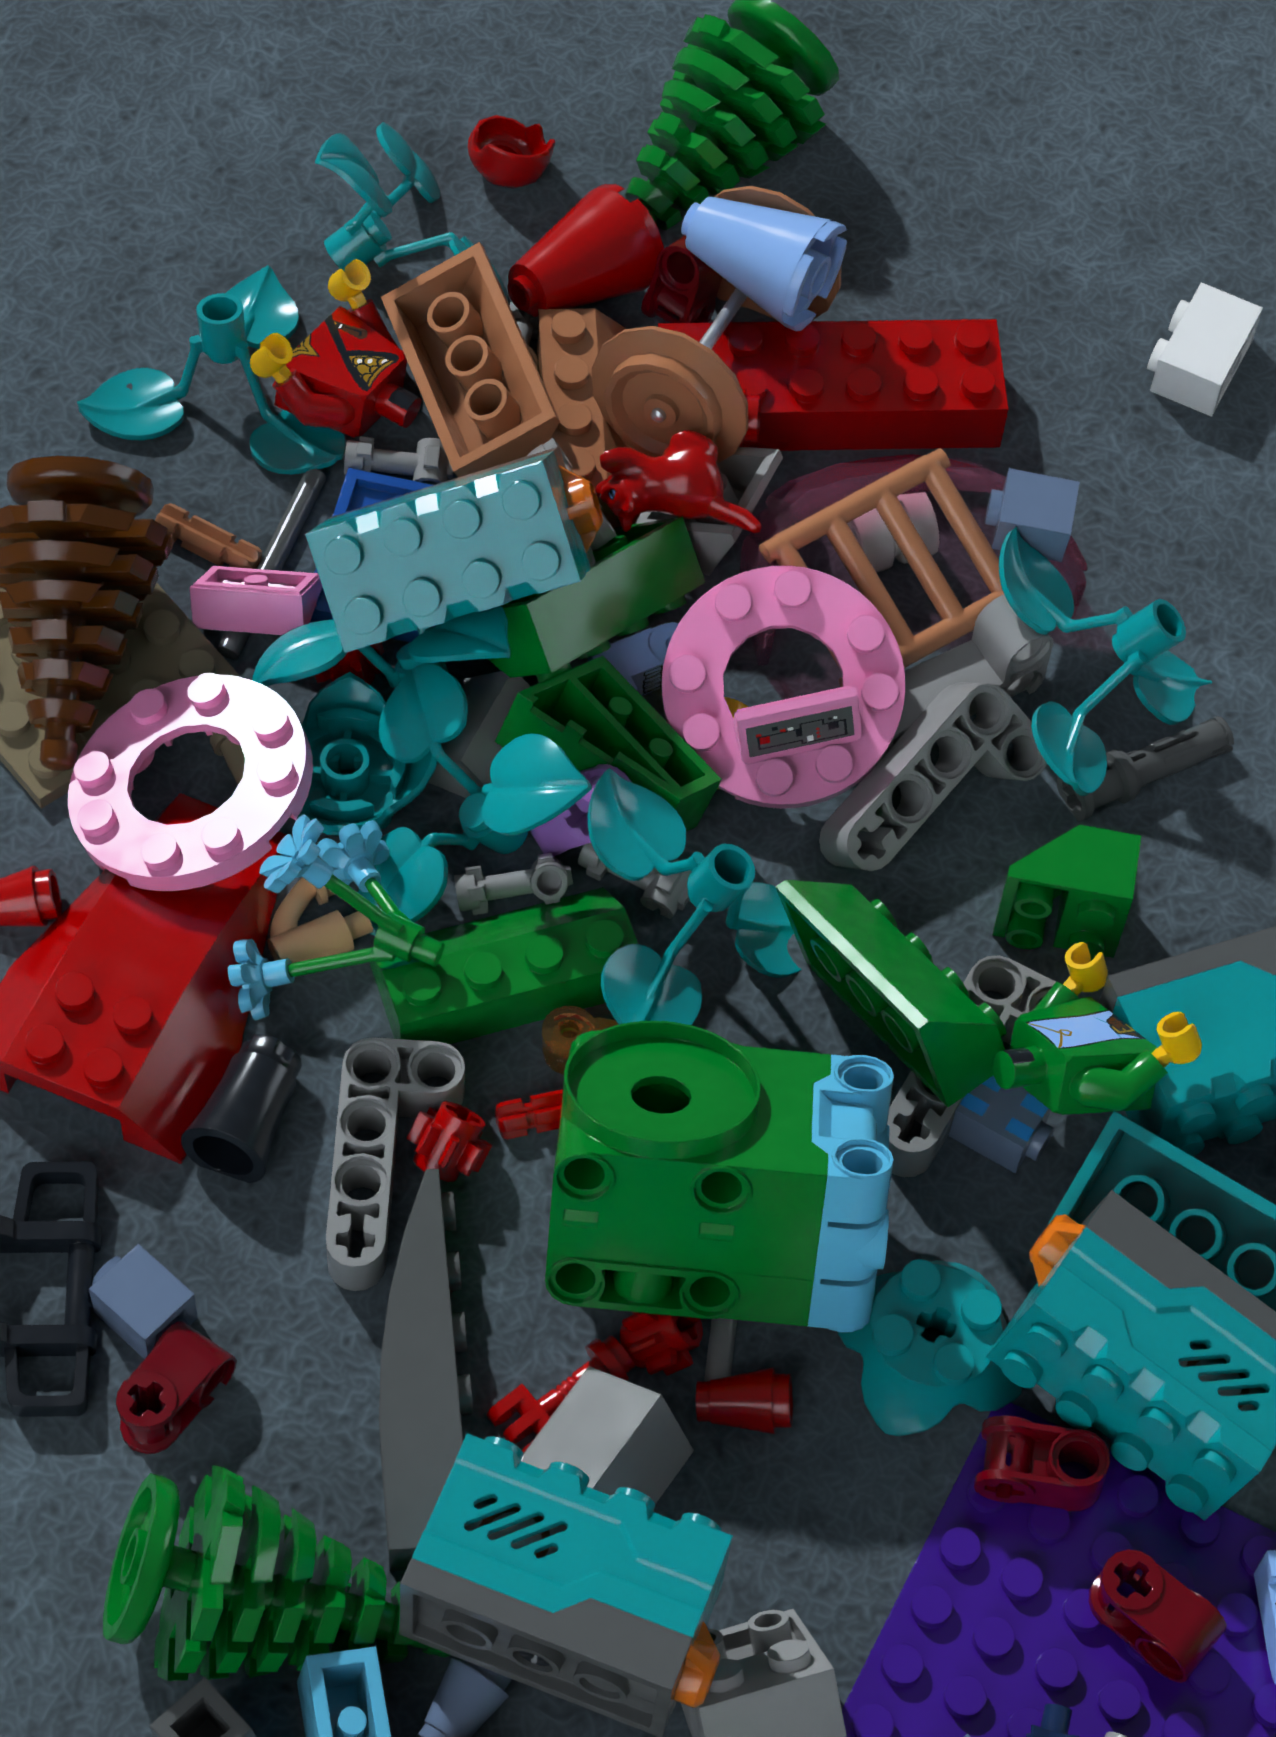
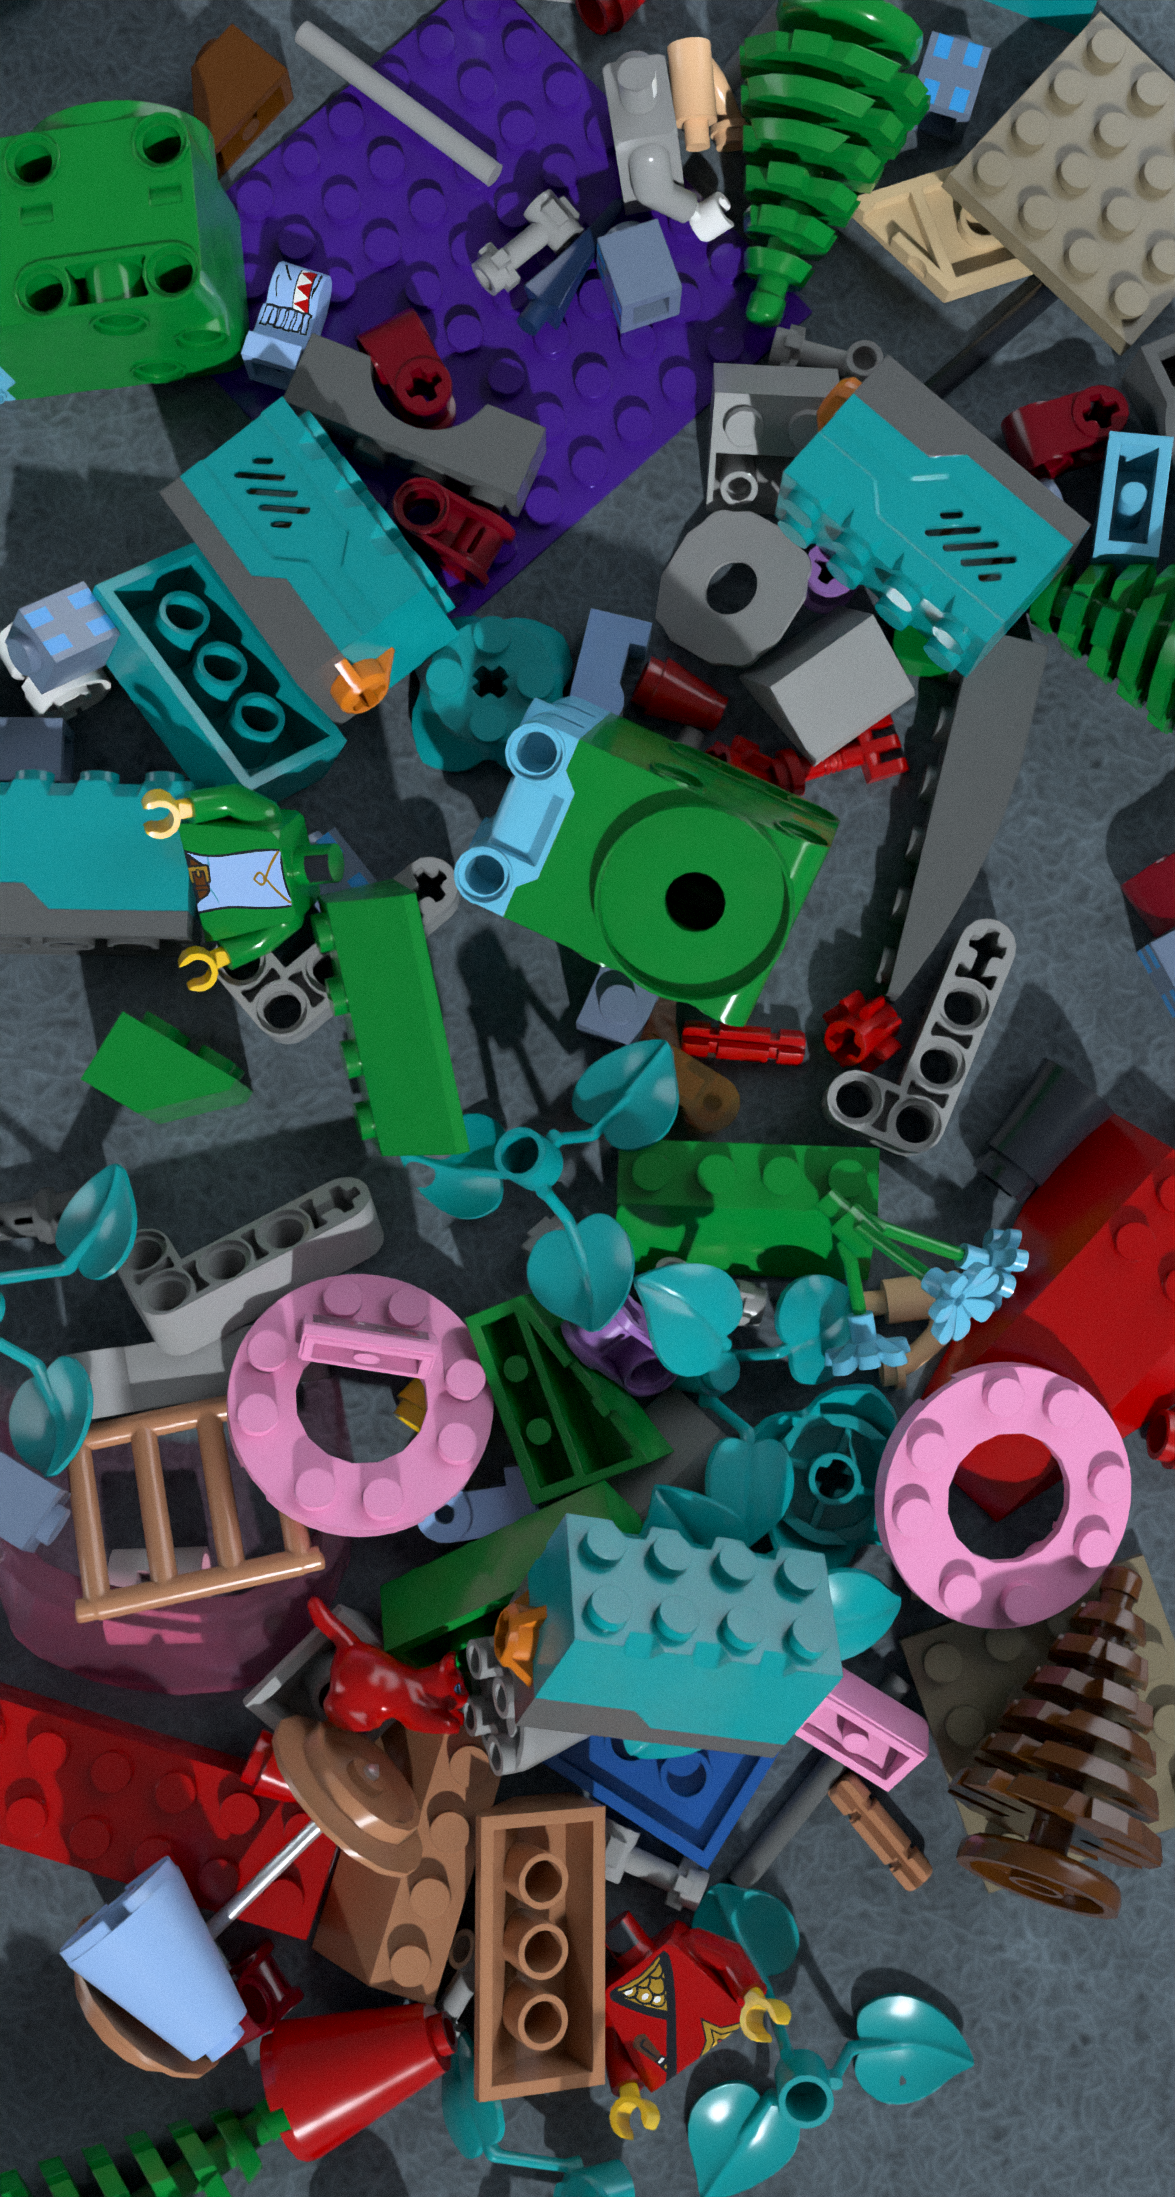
camera: 160 degrees left, 25 degrees up
(723, 1464) = (746, 635): none -> light grey piece
(830, 1378) = (604, 656): none -> light blue leg
(1037, 1544) = (484, 459): none -> dark grey arch

